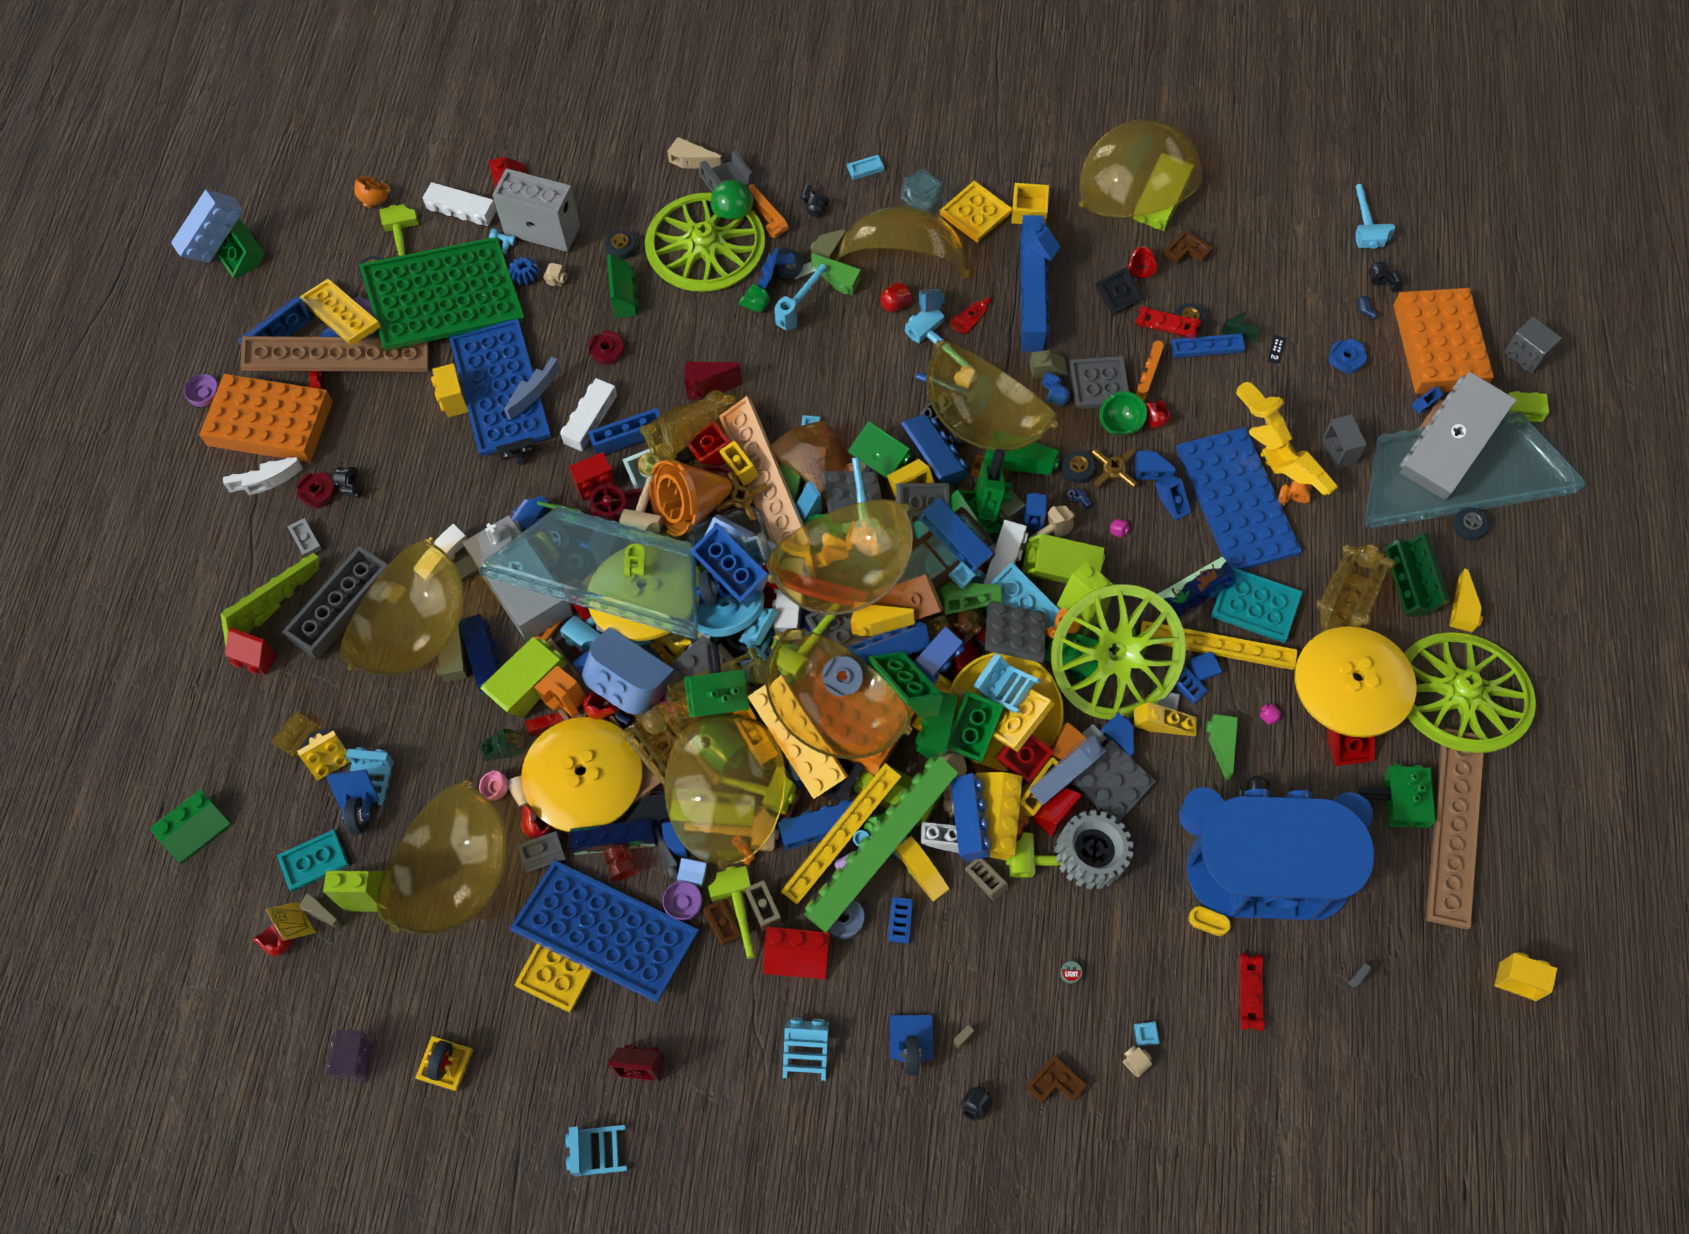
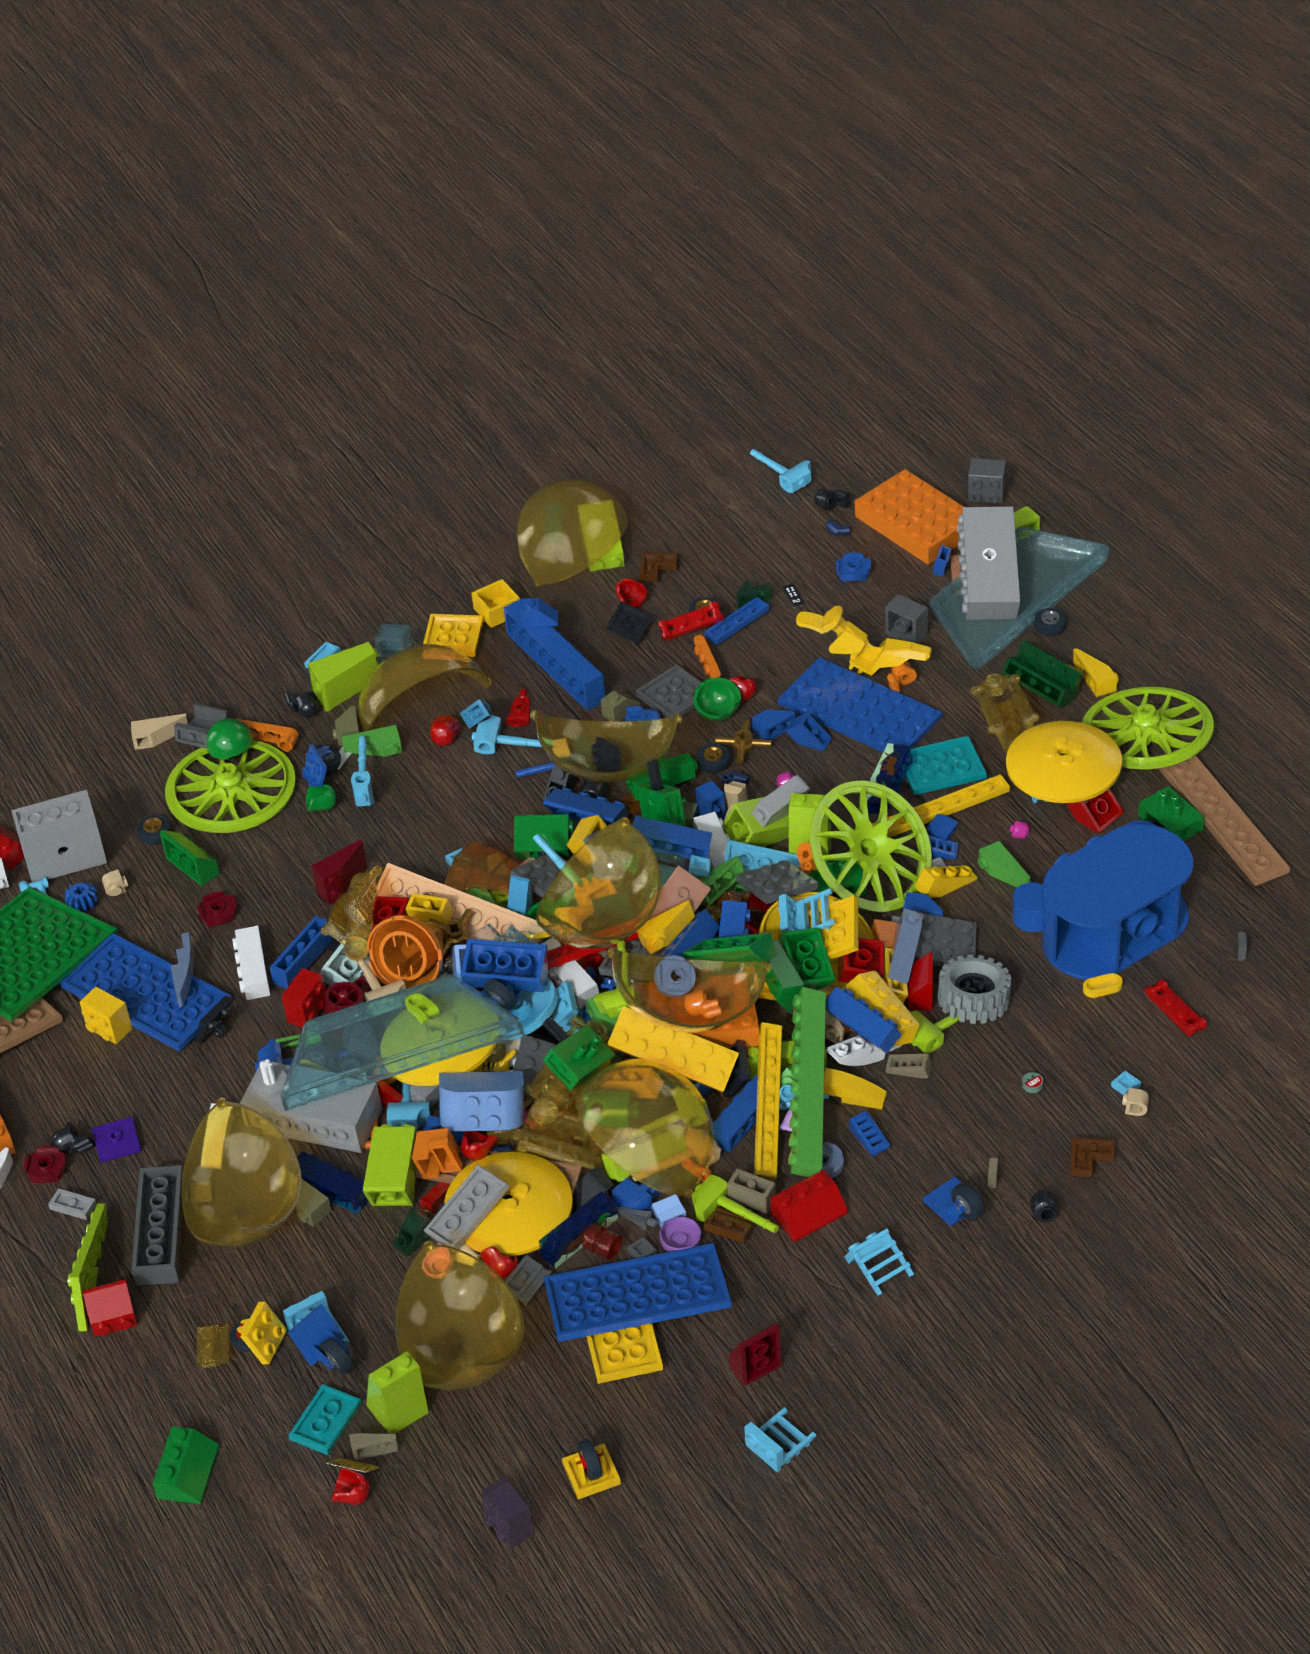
camera: 35 degrees left, 20 degrees down
(378, 502) = (116, 1139): none -> dark purple plate
(541, 760) = (466, 1208): none -> light grey tile
(645, 890) = (641, 1248): none -> dark grey tile
(844, 715) = (699, 1004): none -> orange piece
(859, 194) = (342, 674): none -> lime slope
(984, 414) = (605, 756): none -> black slope
(1073, 557) = (776, 804): none -> light grey slope

